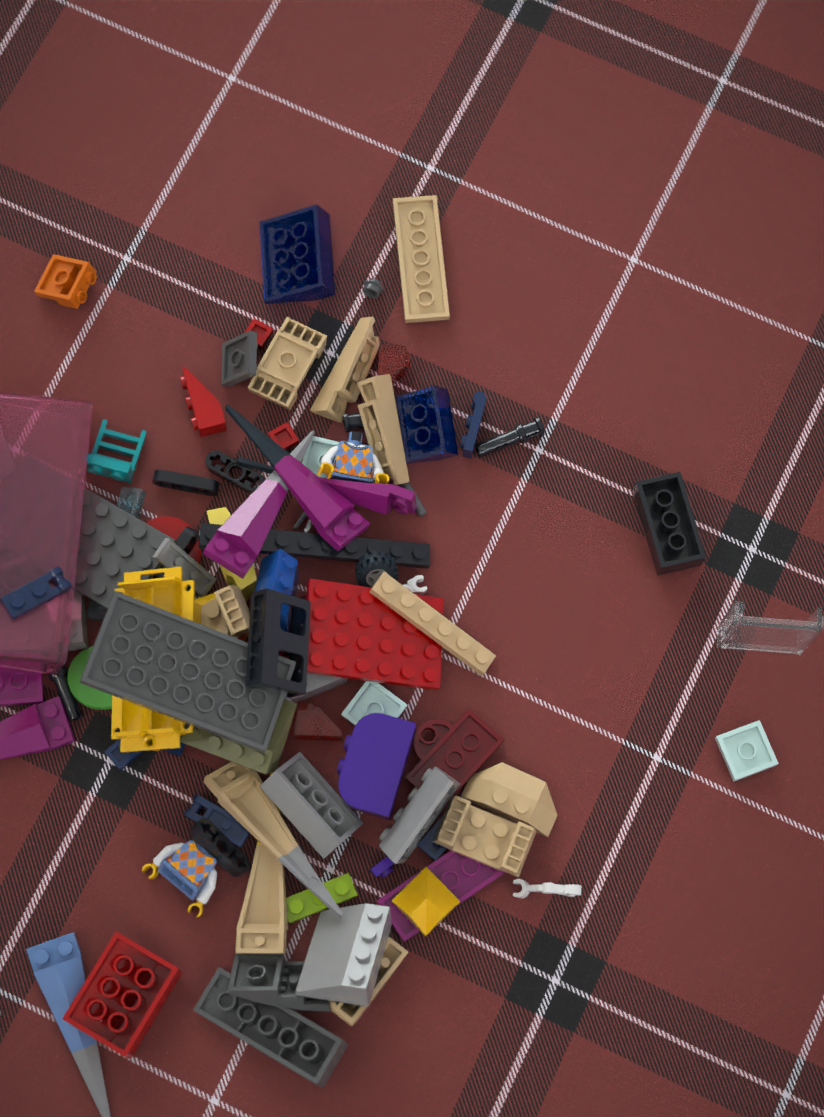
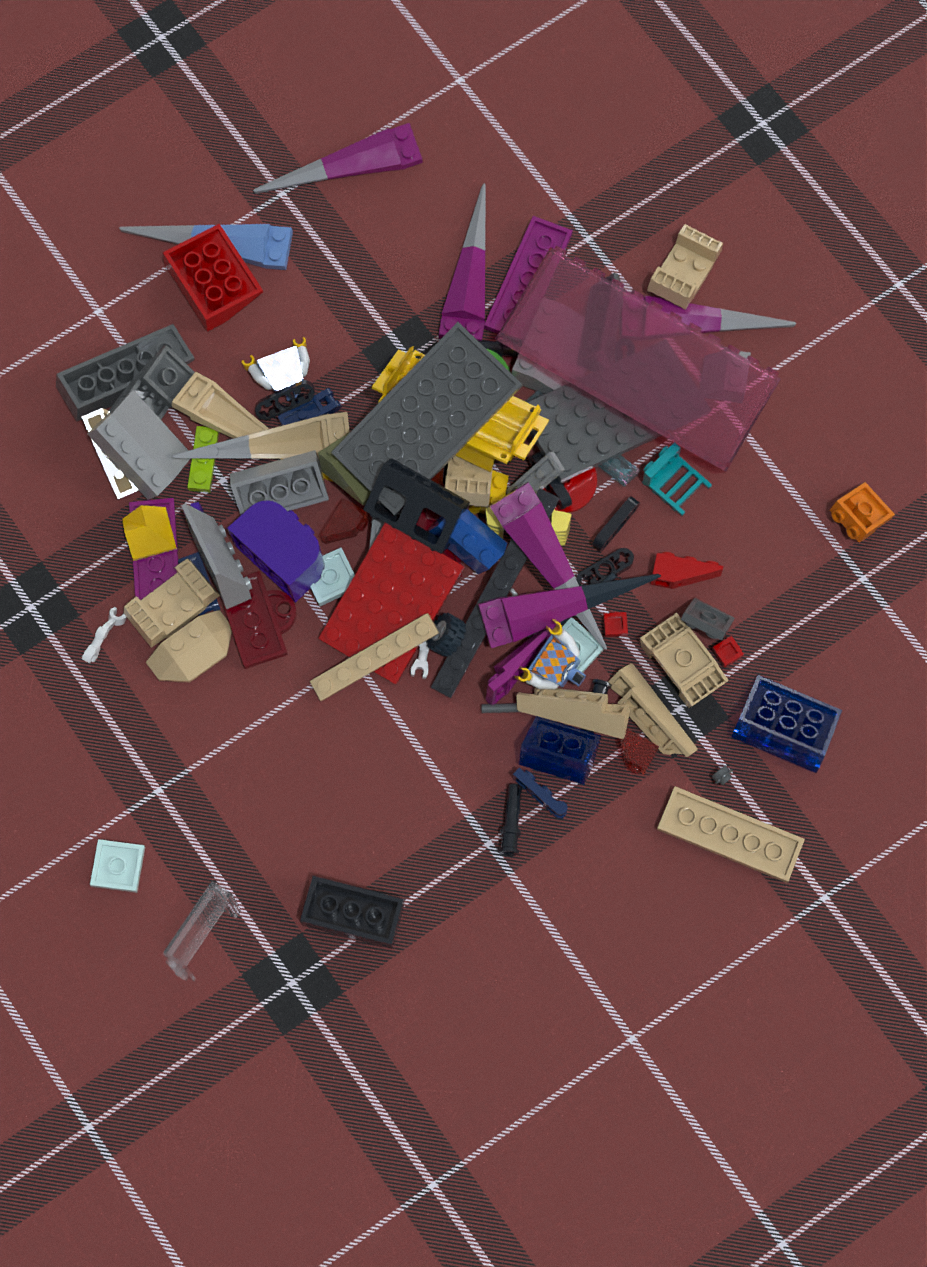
camera: 125 degrees right, 0 degrees up
(35, 593) = (563, 337): dark blue plate -> none

